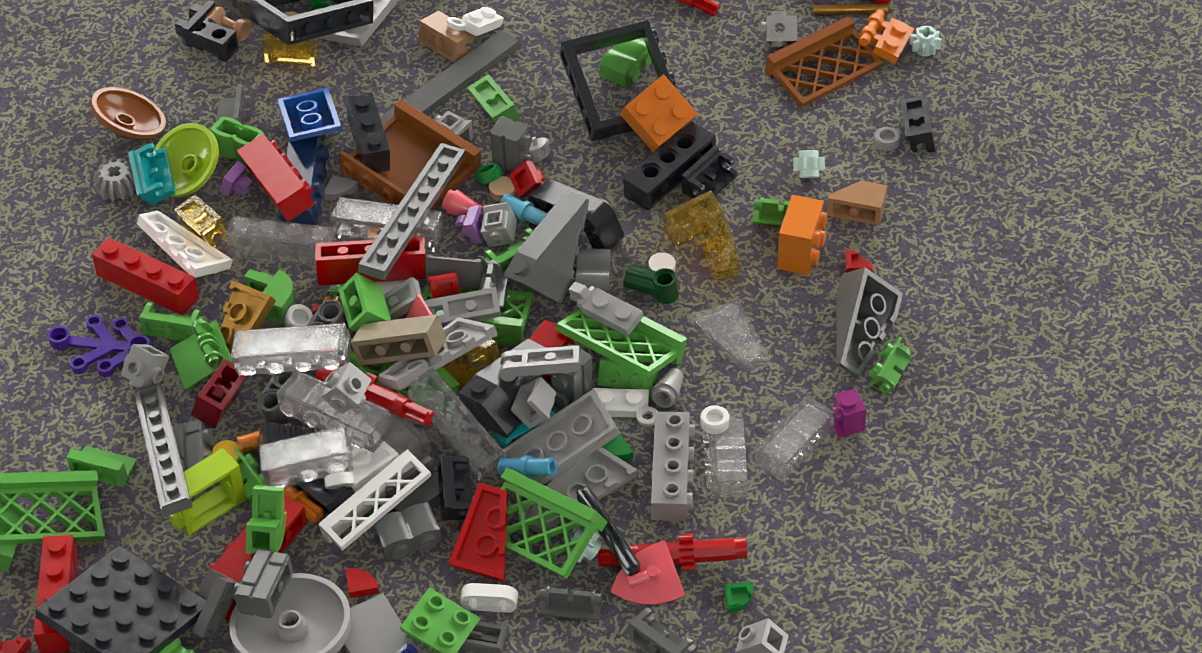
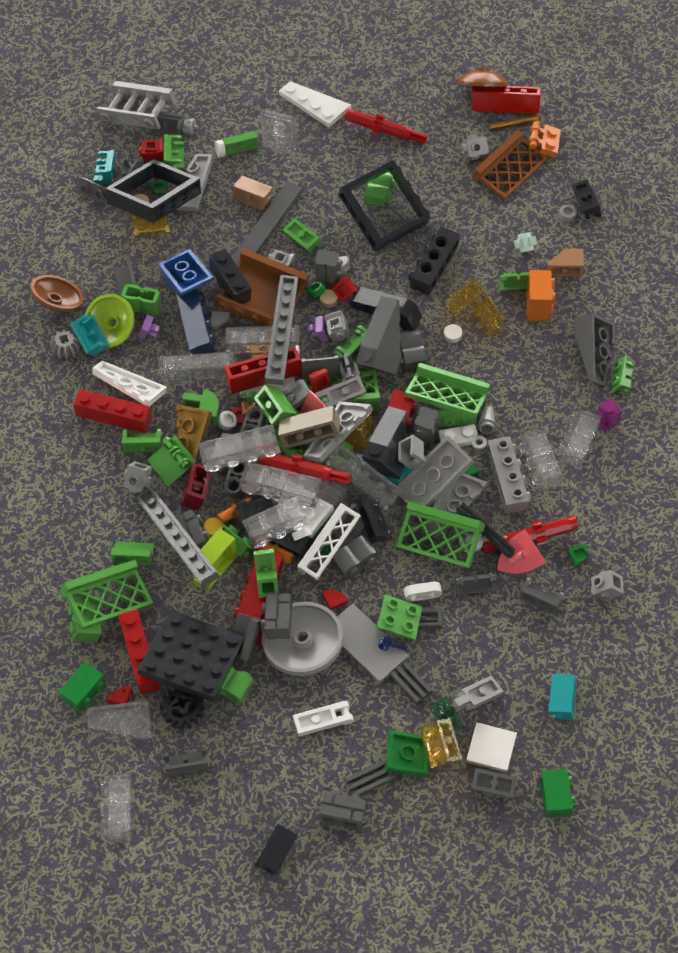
camera: 15 degrees left, 10 degrees up
(60, 339) = (101, 467): dark purple plant -> none
(202, 219) = (138, 362): clear yellow hinge -> none
(212, 30) = (90, 218): black hips -> none
(276, 177) = (179, 322): brick -> none
(346, 388) = (290, 470): light grey brick -> none
(457, 203) = (305, 316): coral cone -> none
(476, 22) = (271, 179): white hinge -> none
(483, 535) = (405, 549): red wing -> none
(524, 210) = (351, 312): medium azure pin -> none
(529, 466) = (419, 496): dark azure pin -> none
(539, 362) = (408, 424): light grey plate -> none
(606, 308) = (432, 374): light grey hinge -> none
(658, 113) = (419, 226): orange brick -> none
(659, 283) = (452, 347): dark green piece -> none
(708, 174) = (462, 263): black hinge -> none
(714, 419) = (528, 438): white tile -> none
(733, 333) = (515, 372): clear wing -> none
(854, 262) = (577, 308): red tile -> none
(925, 41) = (571, 137): light aqua gear -> none

